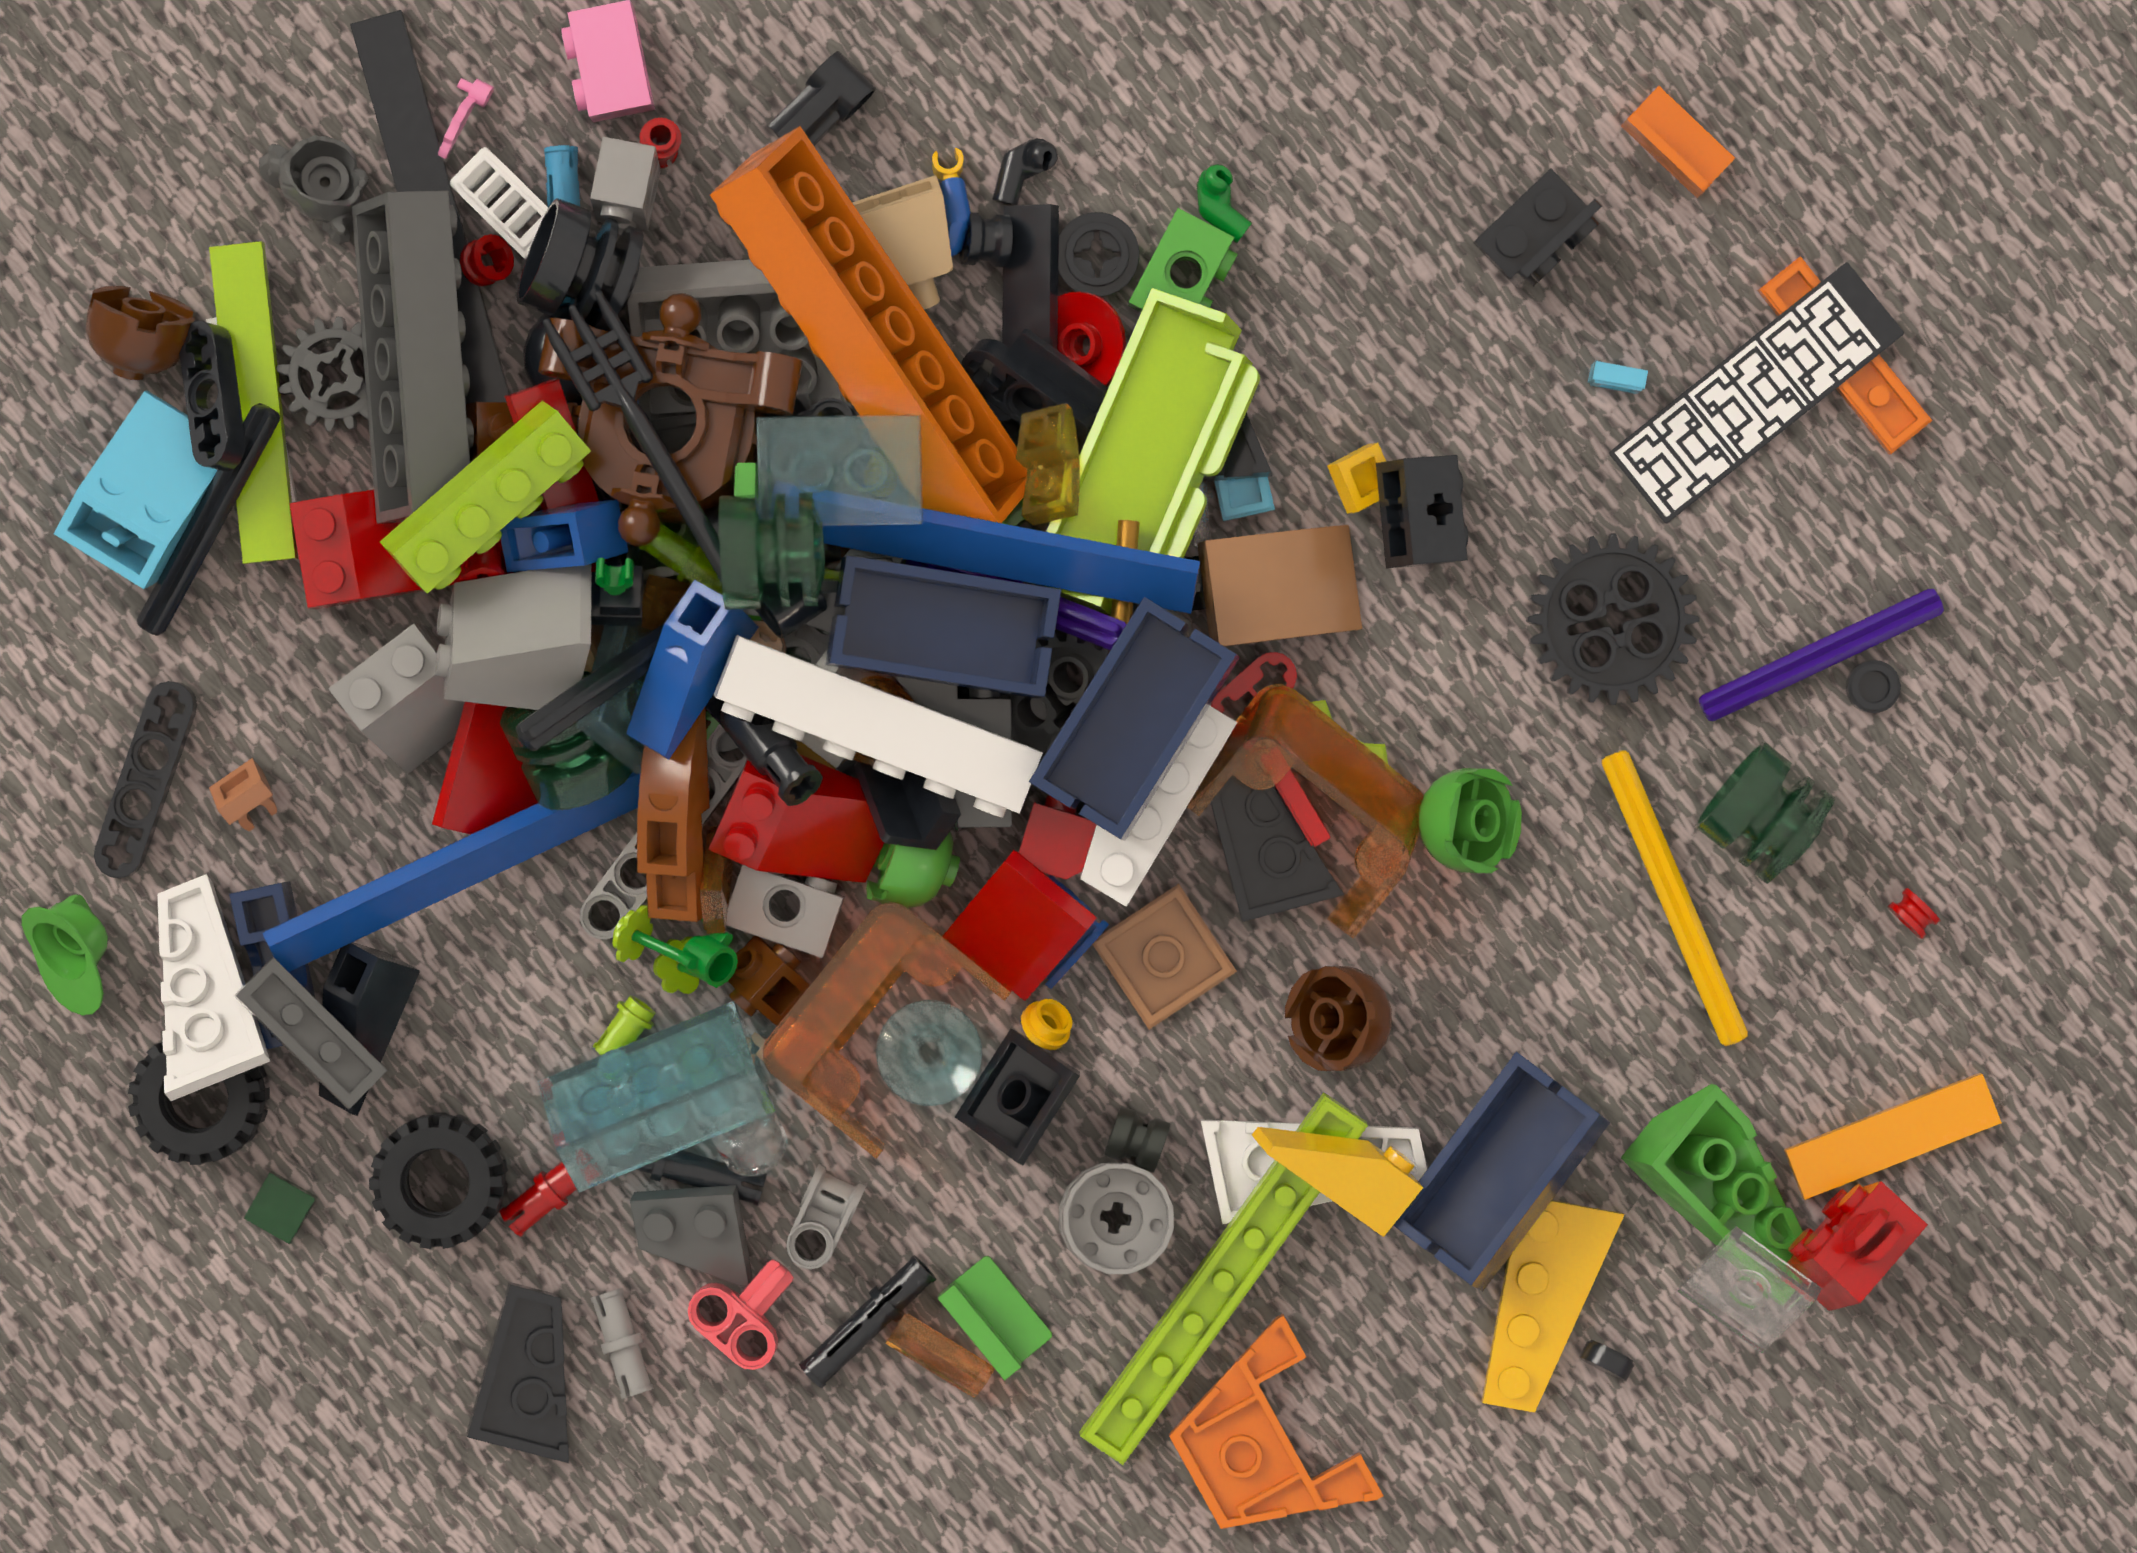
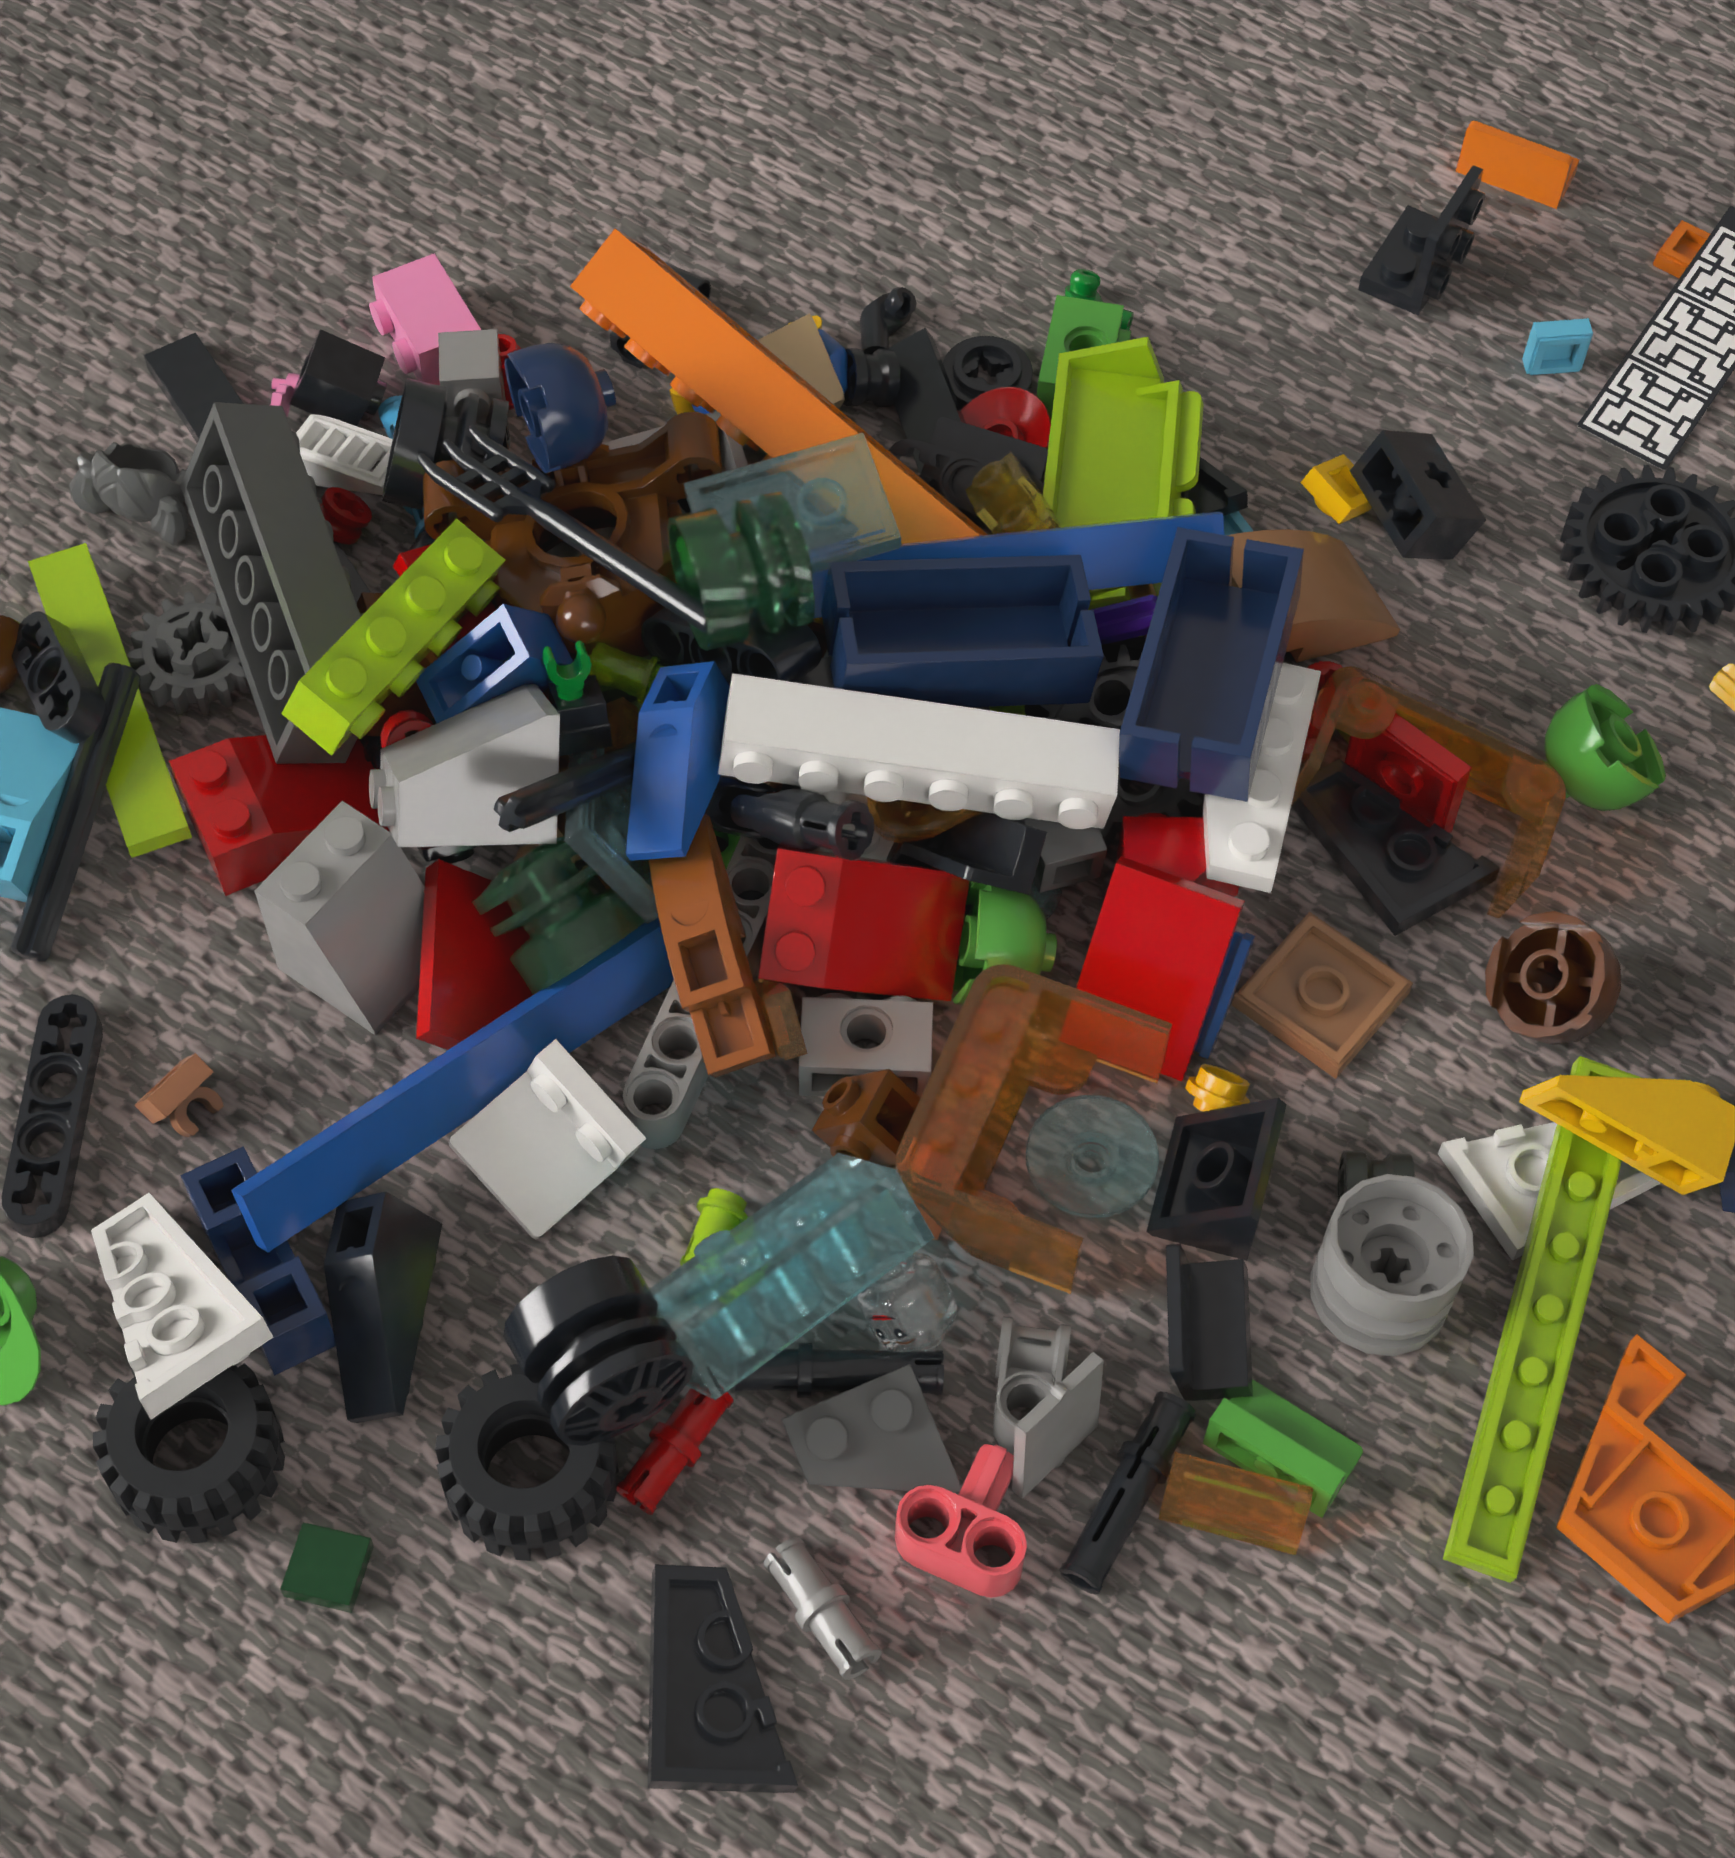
camera: 20 degrees left, 30 degrees down
(310, 1033) = (318, 1293): dark grey plate -> none
(498, 1151) = (597, 1350): none -> black wheel
(512, 925) = (547, 1141): none -> white bracket
(514, 116) = (339, 380): none -> black brick
(668, 329) = (559, 402): none -> dark blue cylinder
(679, 962) = (793, 1091): plant -> none
(825, 1270) = (1057, 1425): none -> light grey piece
(968, 1213) = (1208, 1327): none -> black panel

